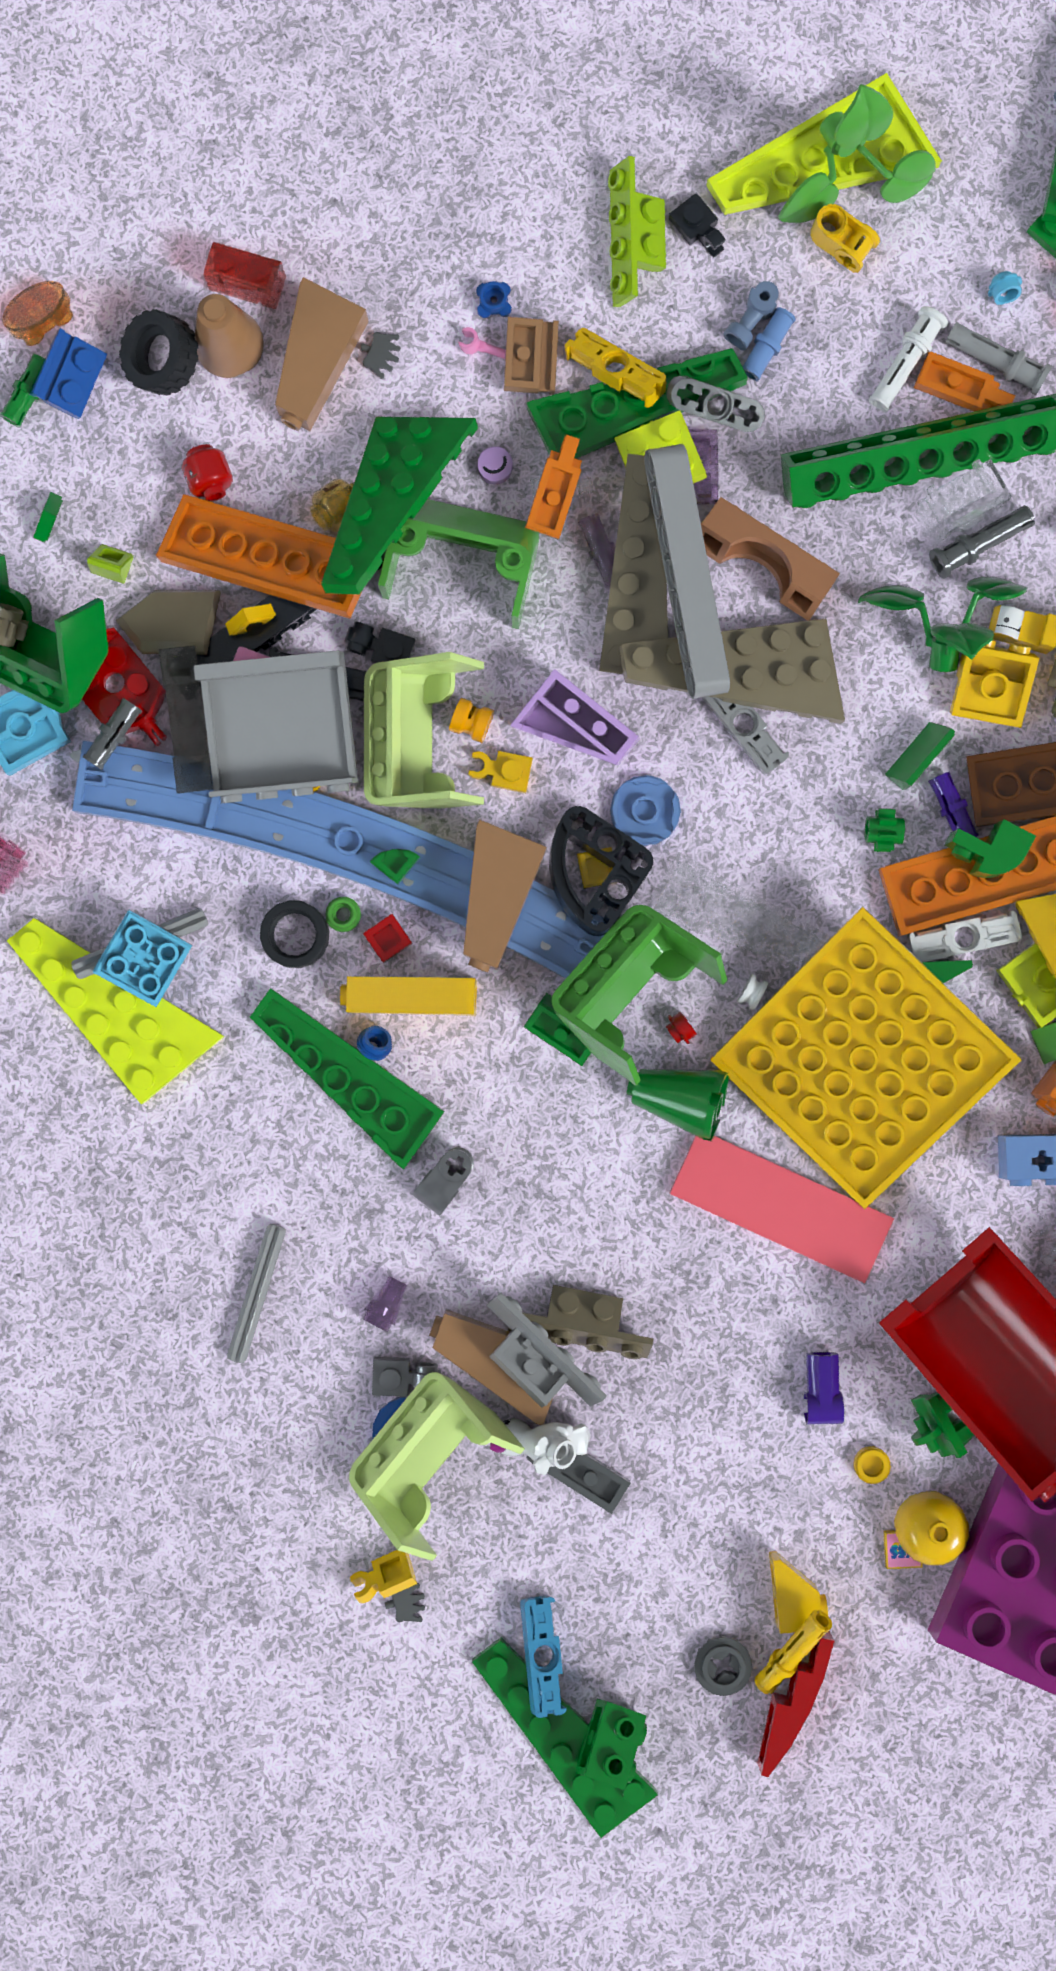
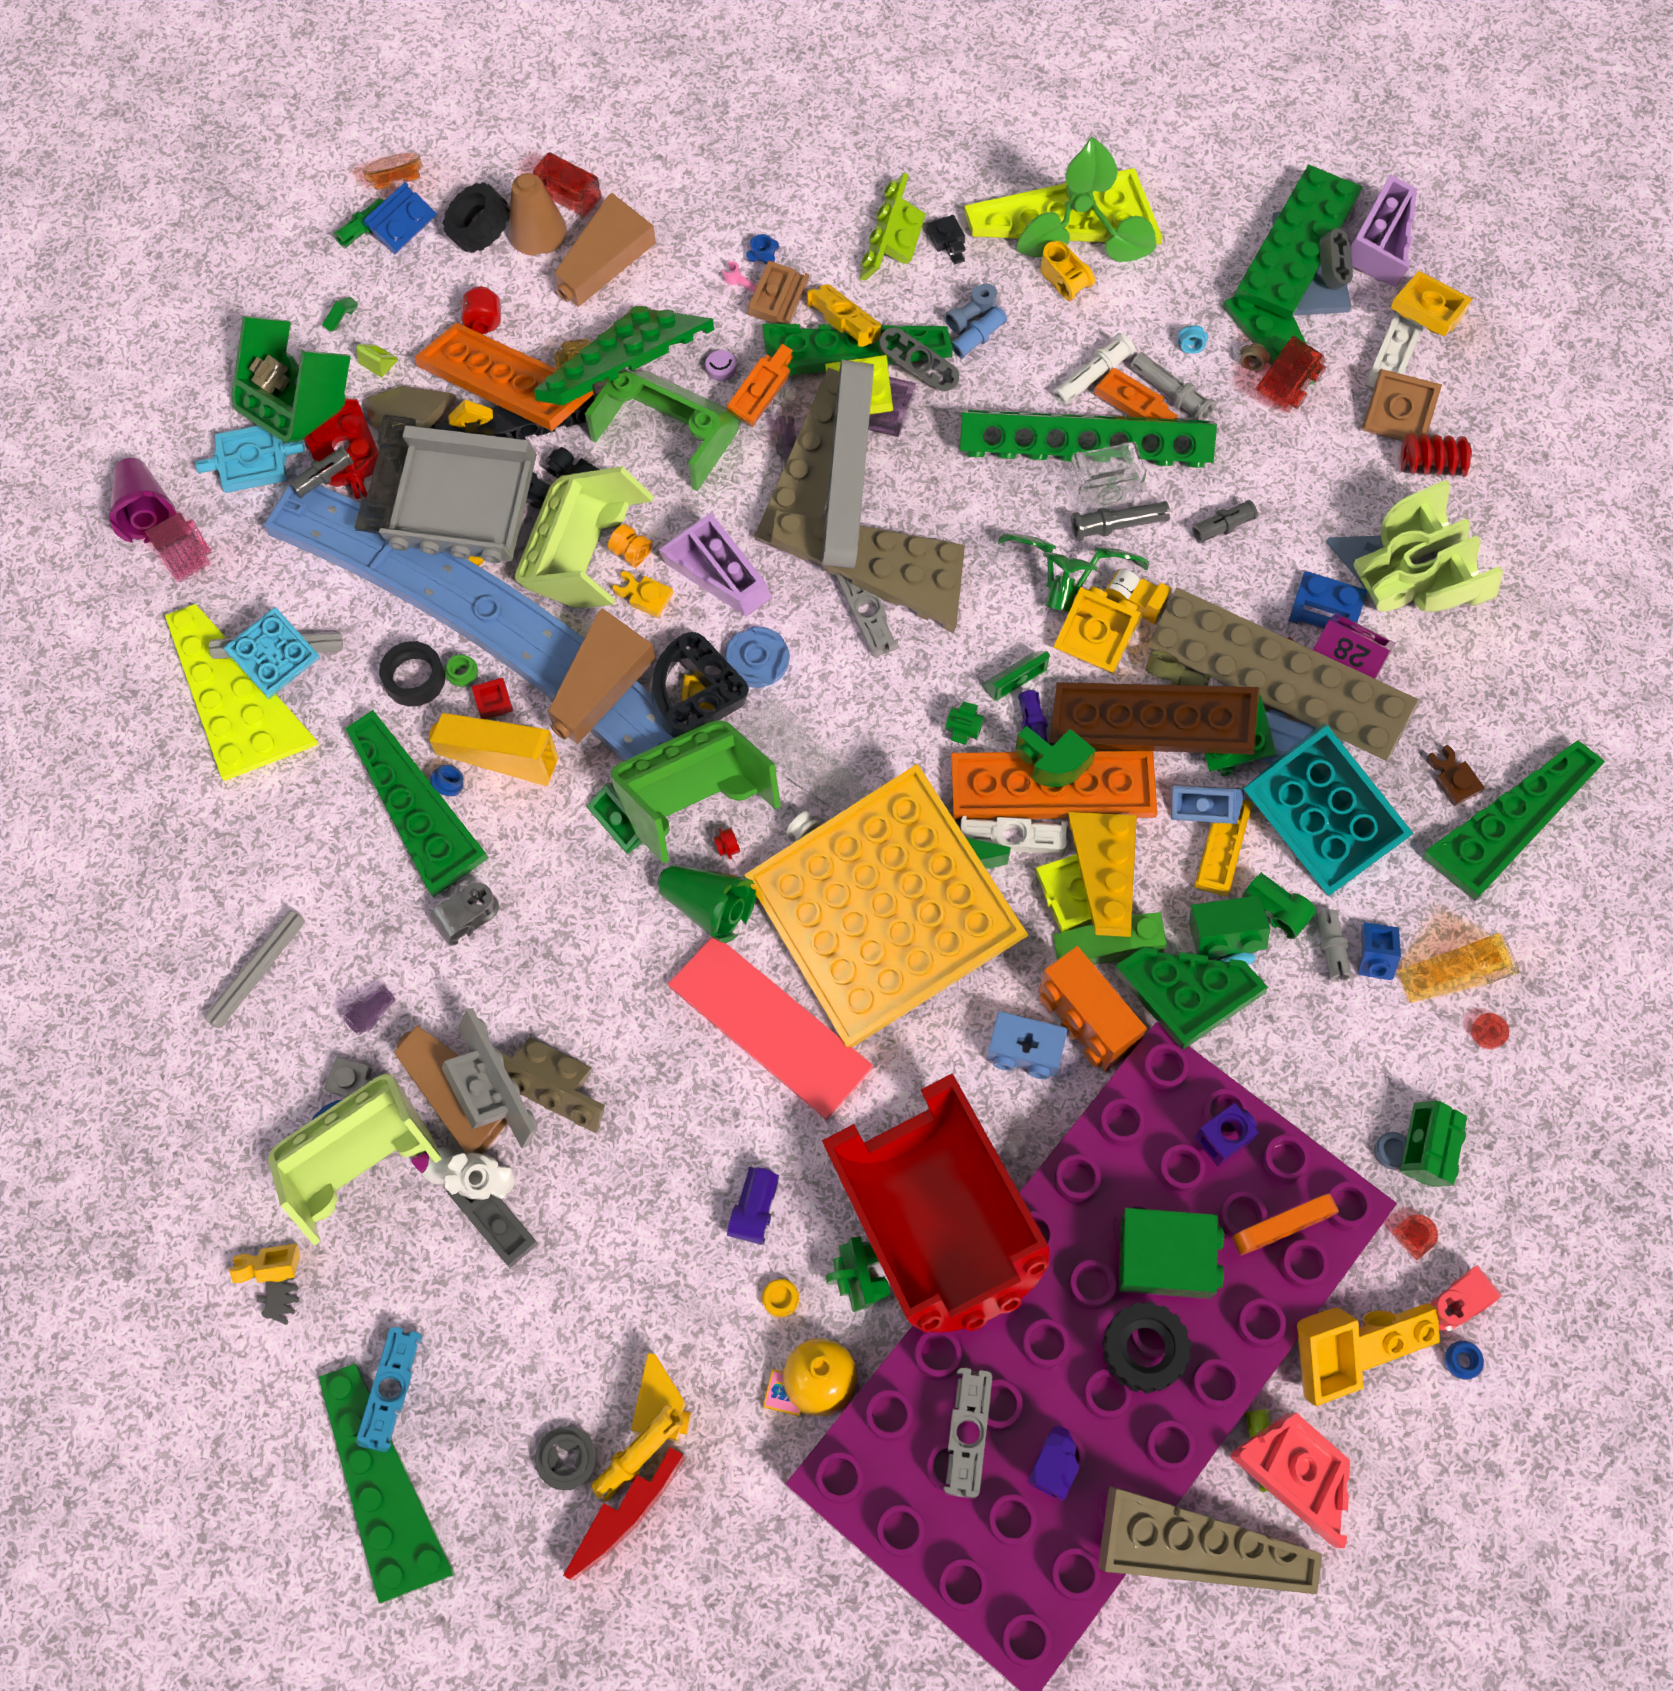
camera: 15 degrees right, 20 degrees down
(379, 353) = (657, 265): dark grey piece -> none
(395, 863) = (520, 634): green tile -> none
(612, 1744) = (422, 1497): green brick -> none
(800, 576) = (902, 459): nougat arch -> none

